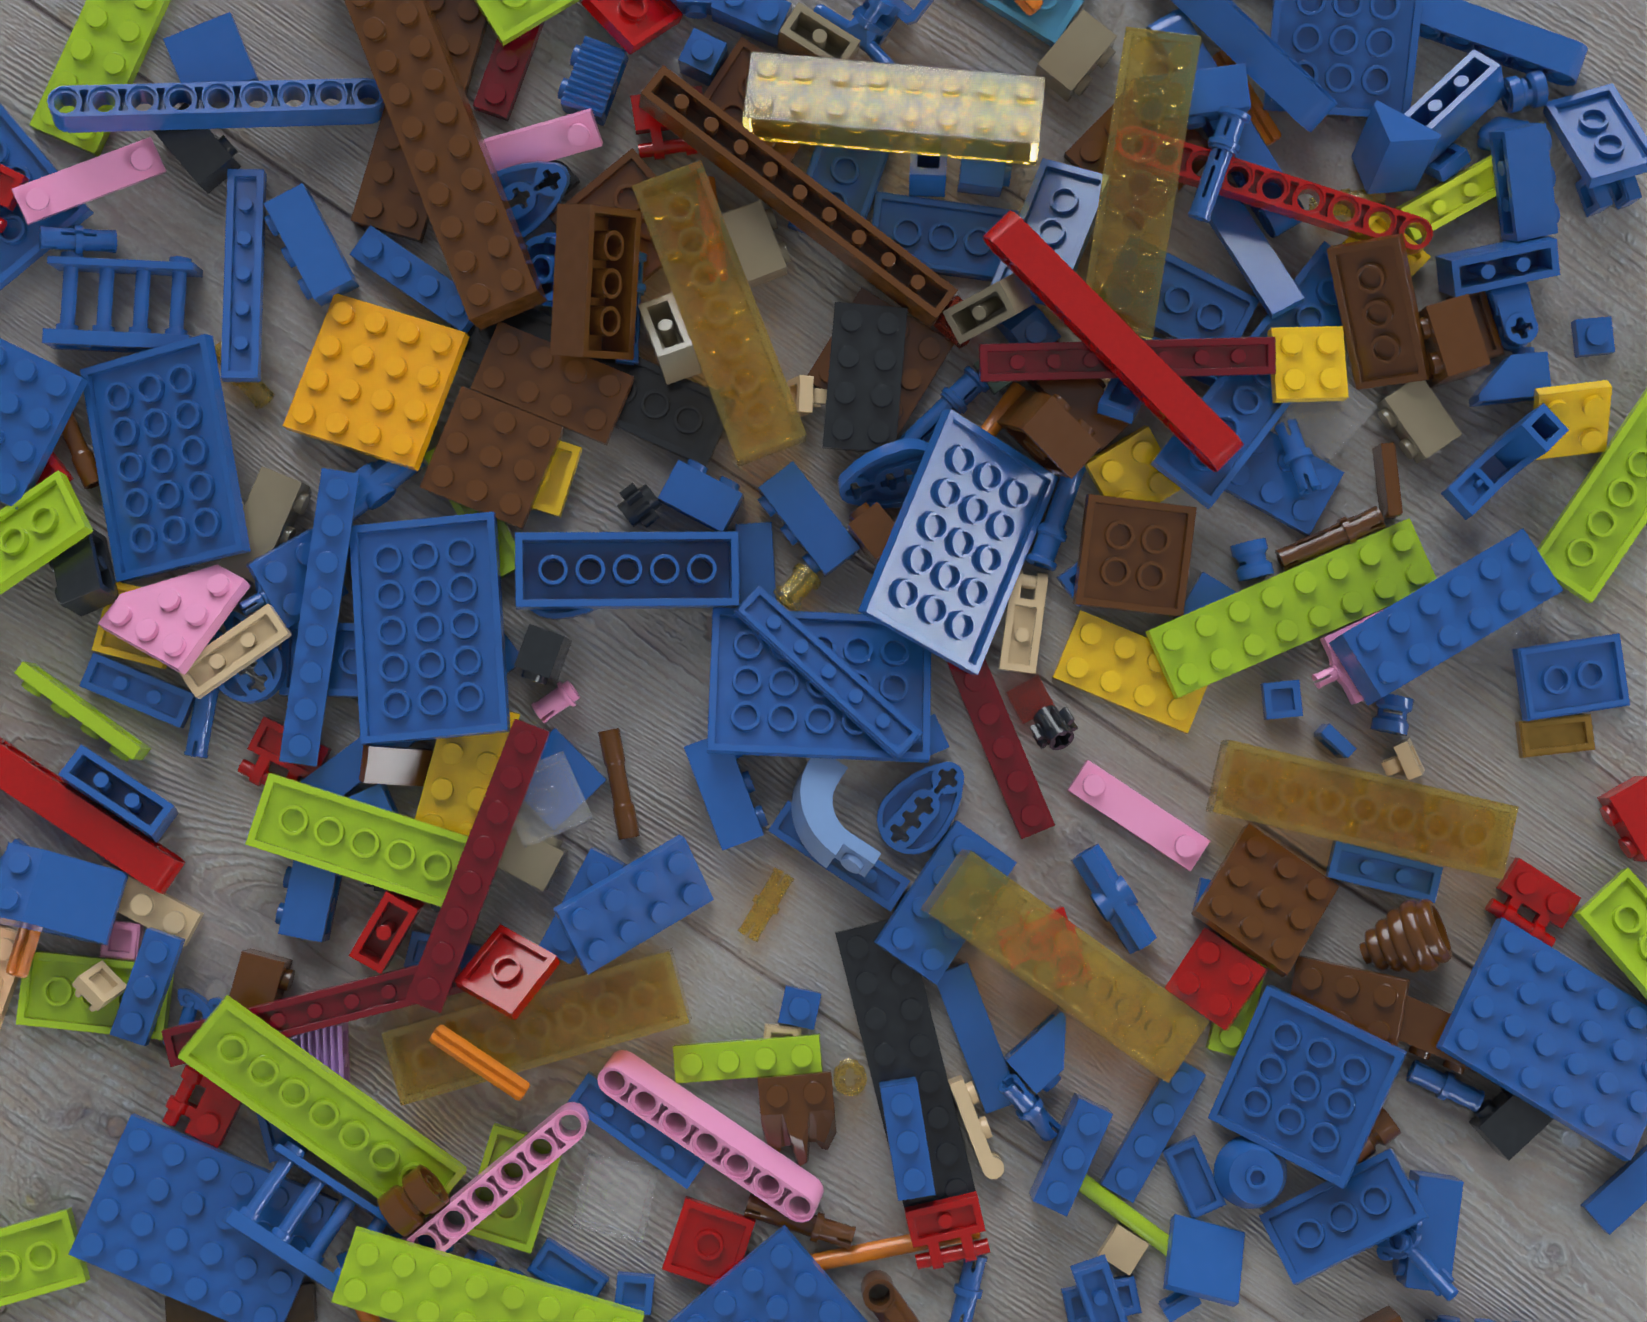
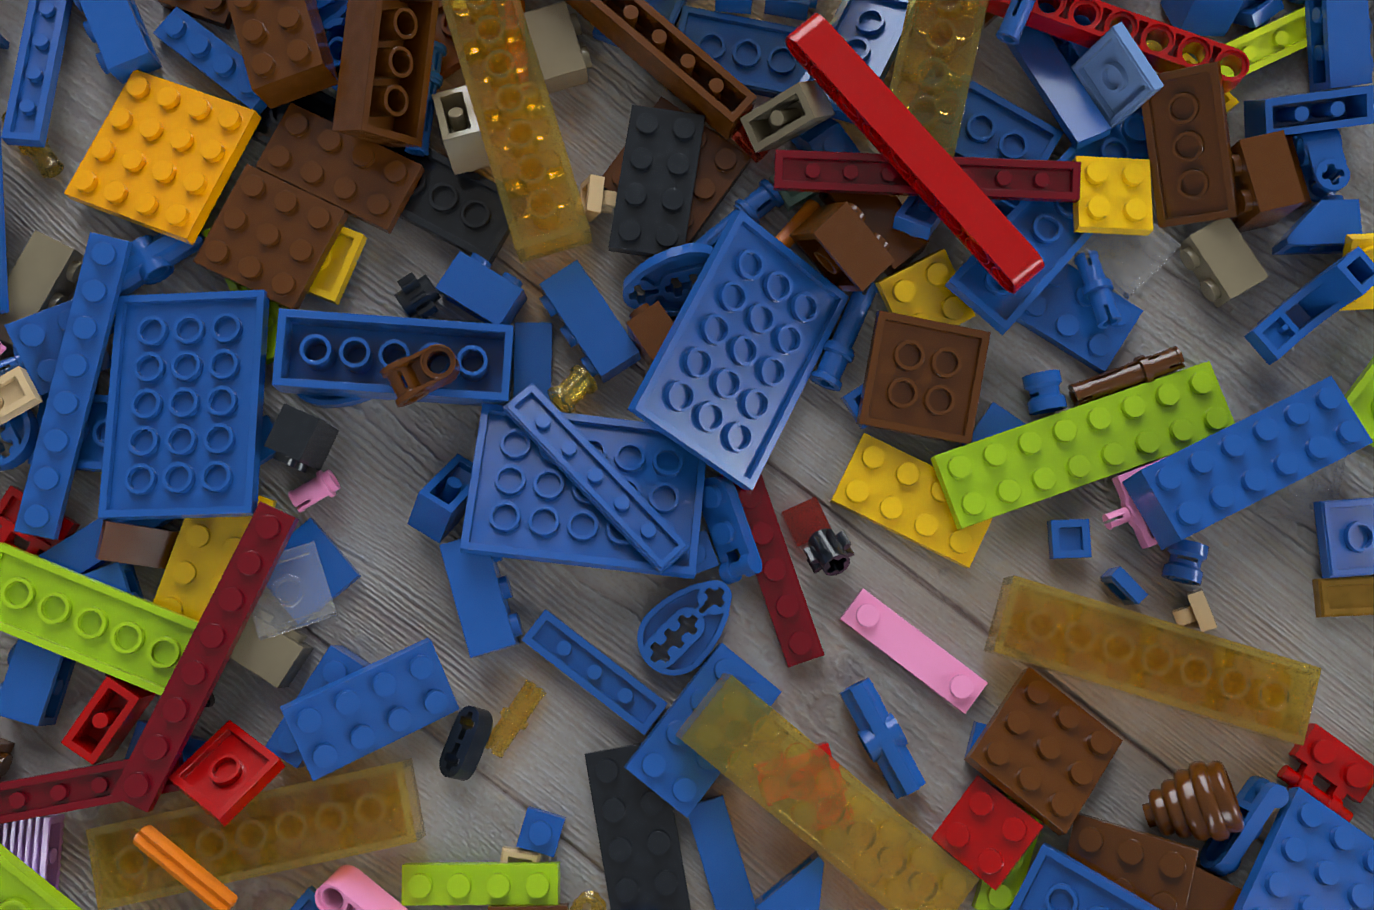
camera: 10 degrees right, 5 degrees down
(623, 807) = (369, 556): reddish brown piece -> none
(654, 588) = (418, 374): none -> reddish brown piece
(683, 701) = (443, 500): none -> blue slope
(723, 930) = (466, 743): none -> black beam
(818, 824) = (572, 634): medium blue arch -> none
(958, 713) = (729, 530): none -> blue plate
(1023, 625) = (804, 444): tan plate -> none
(1306, 247) = (1117, 75): none -> medium blue tile
(1383, 871) = (1170, 728): blue plate -> none
(1387, 480) = (1188, 320): reddish brown tile -> none
(1463, 937) = (1256, 802): none -> blue plate

